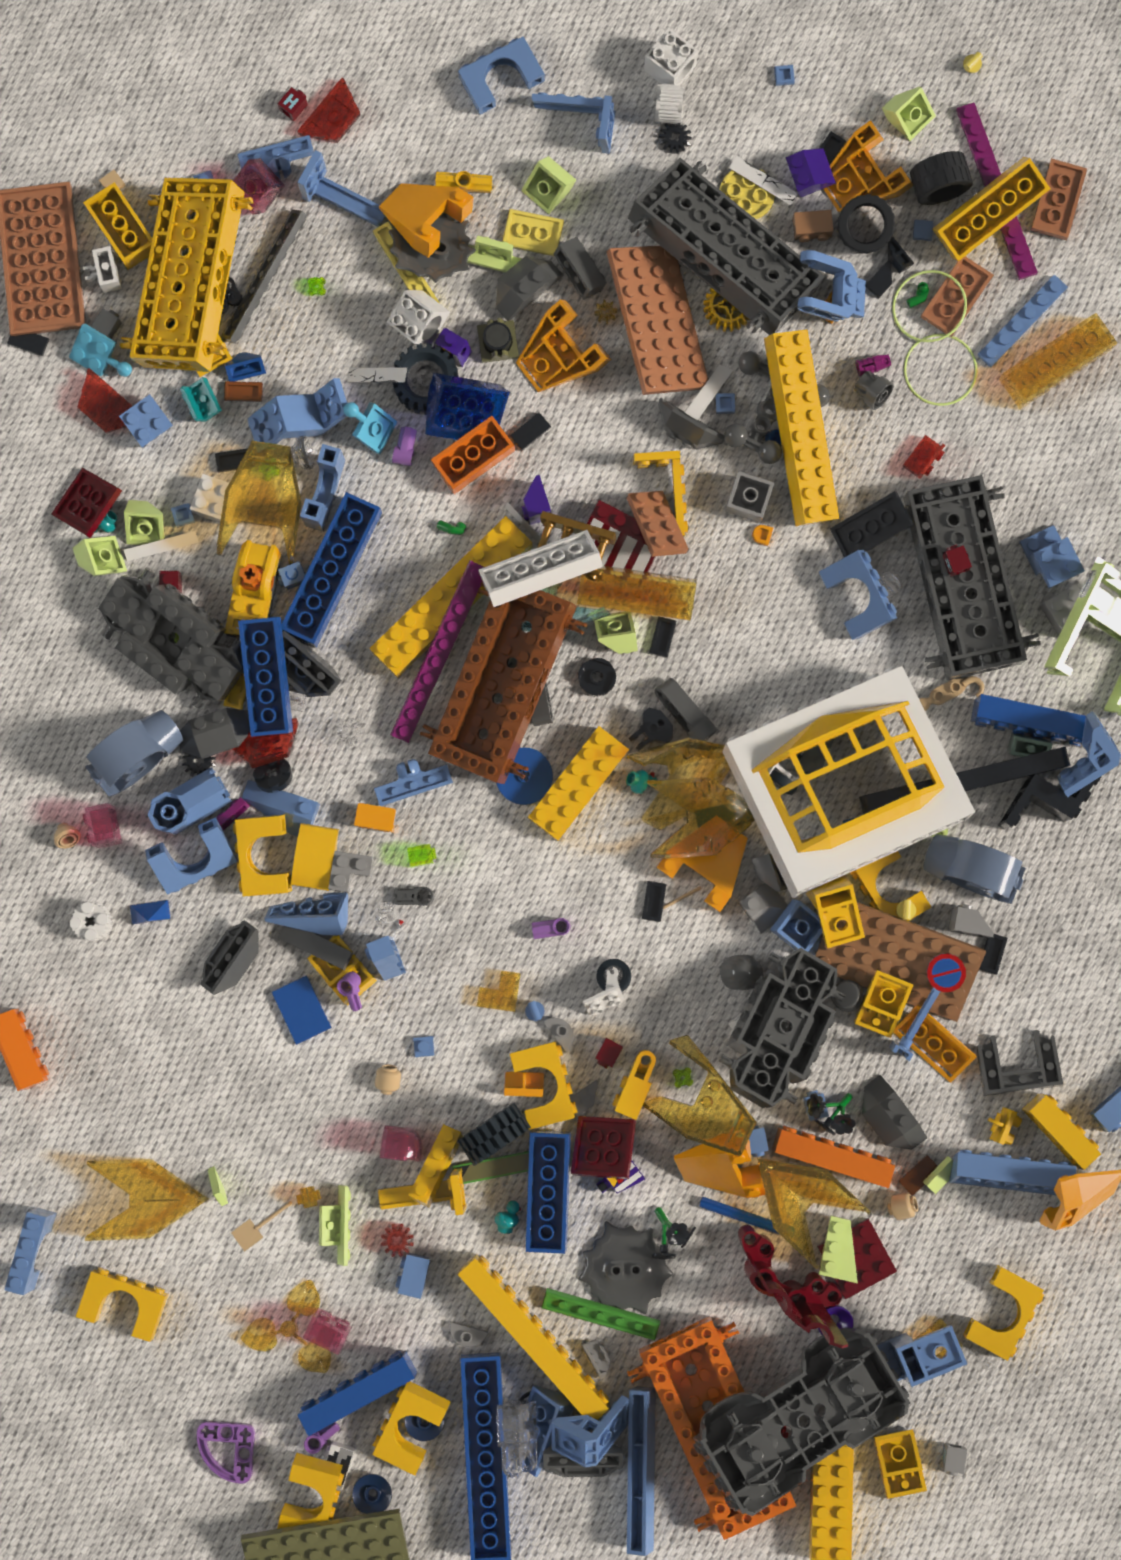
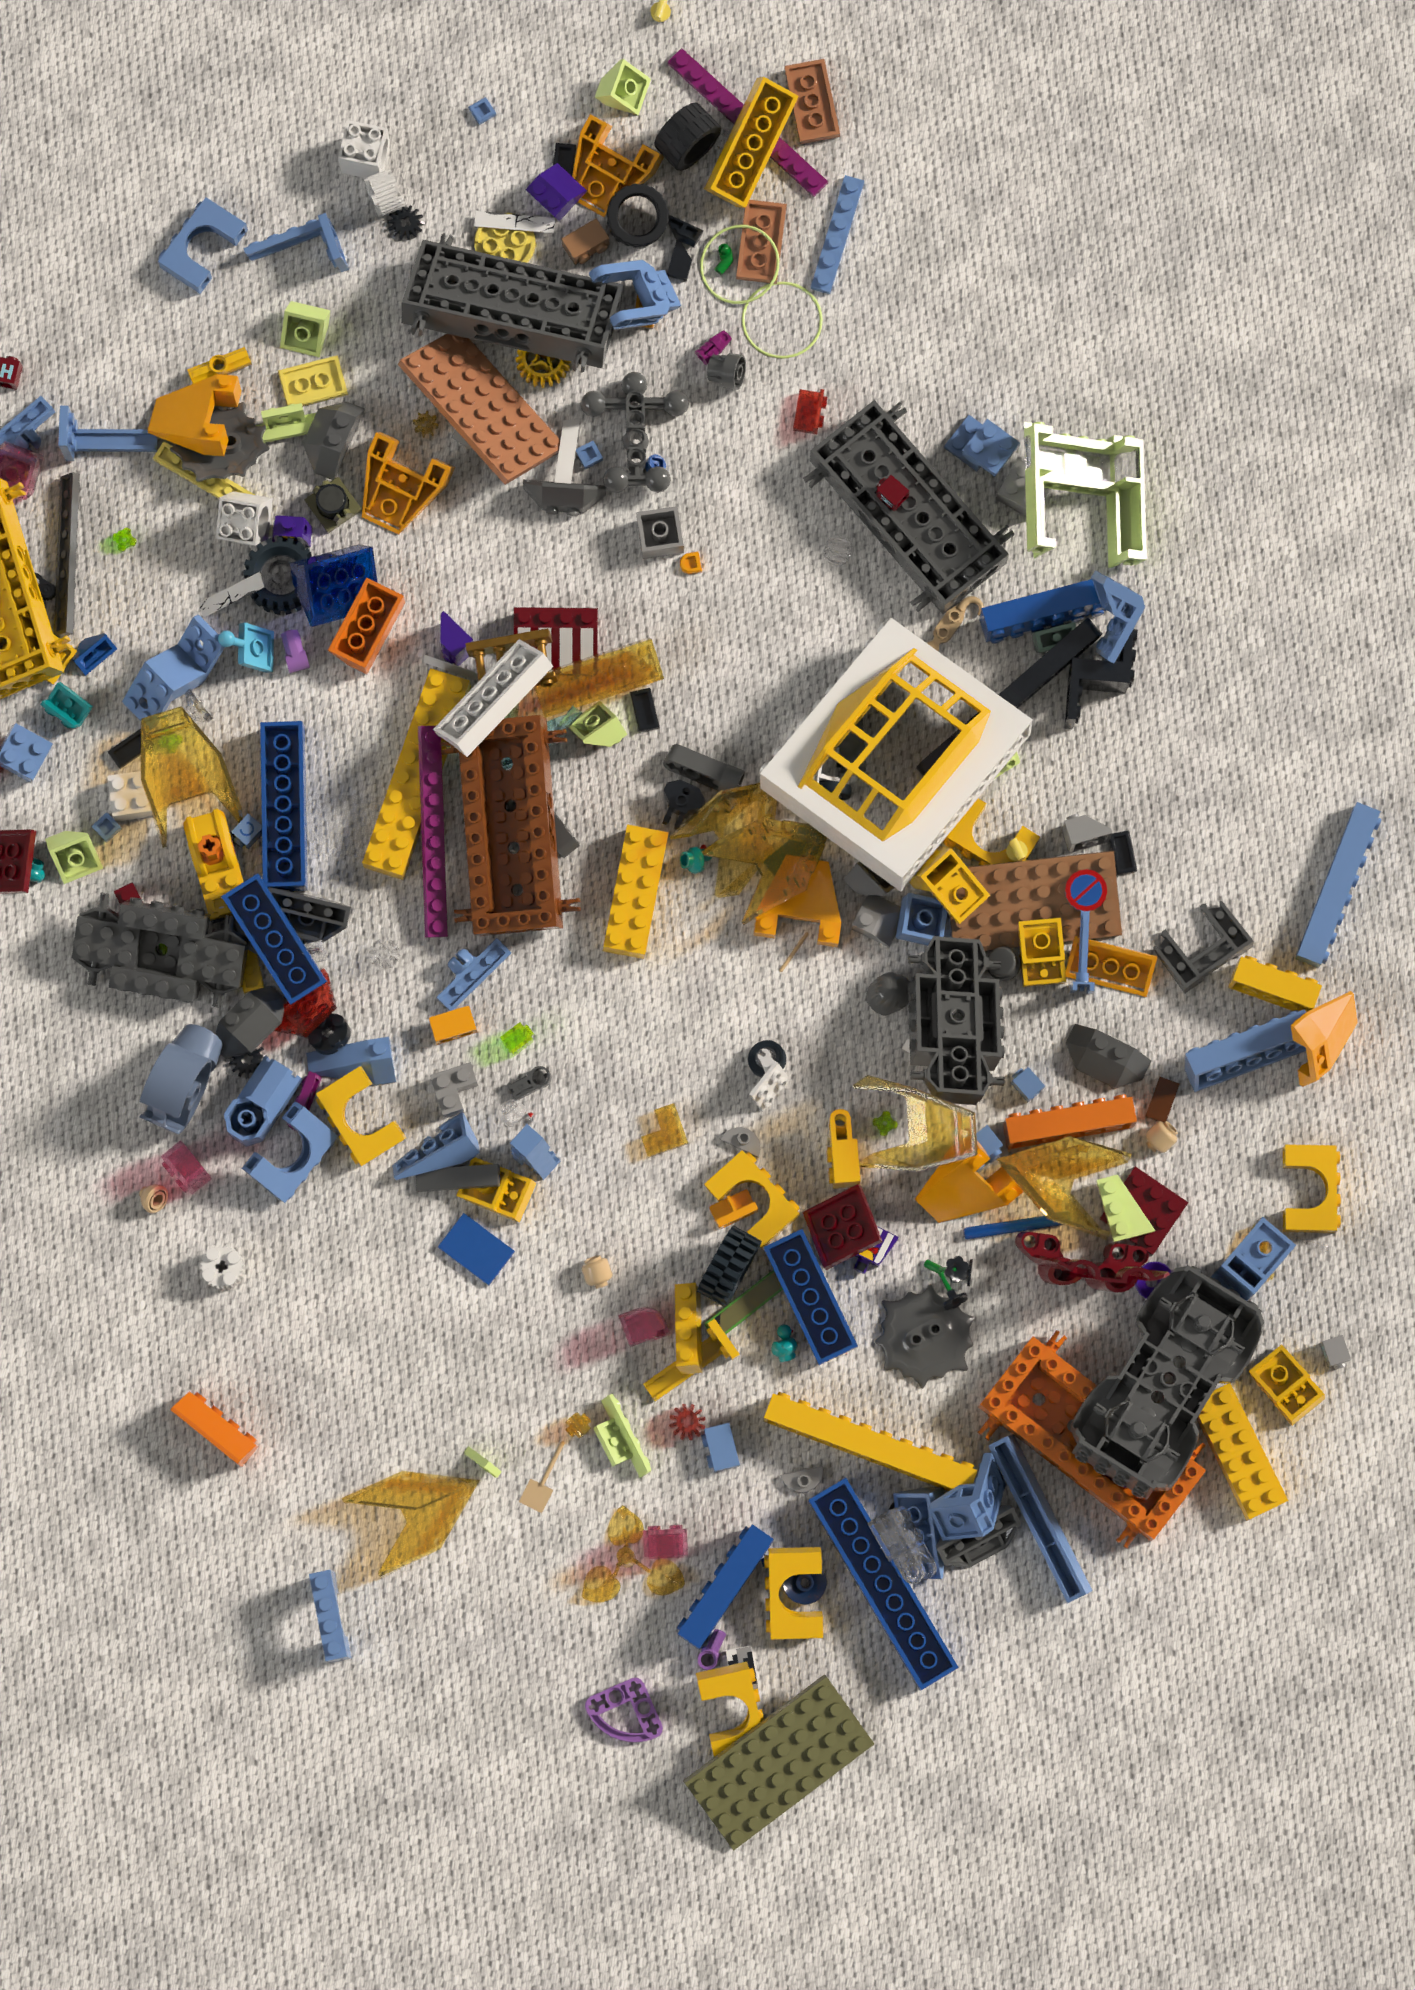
camera: 30 degrees left, 5 degrees down
(100, 556) = (44, 908): yellowish green slope -> none
(149, 1300) = (418, 1615): yellow arch -> none
(150, 912) = (275, 1231): blue slope -> none
(161, 546) = (100, 868): white sticker -> none
(230, 958) = (380, 1231): dark grey wedge -> none
(243, 391) = (104, 677): dark orange tile -> none
(314, 856) = (412, 1092): yellow slope -> none
(316, 511) = (233, 713): medium blue arch -> none
(332, 116) = (54, 365): clear red wing -> none
(351, 990) = (518, 1202): medium lavender axle -> none
(372, 1504) = (784, 1669): dark blue dish -> none
(424, 1046) = (616, 1223): medium blue plate -> none
(451, 529) = (380, 709): green arm -> none
(530, 431) = (411, 576): black tile -> none
(534, 1011) = (706, 1133): medium blue plate -> none
(538, 781) = (595, 911): blue piece -> none
(548, 928) = (679, 1046): medium lavender piece -> none
(580, 268) = (378, 393): dark grey brick -> none
(585, 1098) = (800, 1191): flat silver tile -> none
(598, 1357) = (941, 1433): light grey plate -> none
(600, 1314) = (923, 1391): bright green tile -> none
(607, 673) = (608, 771): black plate -> none
(608, 1053) = (800, 1136): dark red brick -> none
(654, 901) = (768, 968): black tile -> none
(657, 523) = (583, 601): nougat plate -> none
(662, 459) = (555, 539): yellow bracket -> none
(801, 427) = (676, 441): yellow brick -> none
(840, 1123) = (1058, 1082): black plant -> none
(872, 525) = (793, 502): black plate -> none
(879, 610) = (842, 578): medium blue arch -> none
(923, 230) = (695, 194): medium blue tile -> none
(940, 1175) = (1181, 1090): yellowish green tile -> none
(975, 867) = (1062, 776): sand blue animal -> none
(1002, 1125) = (1216, 1011): yellow hips -> none
(1058, 361) = (891, 256): clear yellow brick -> none

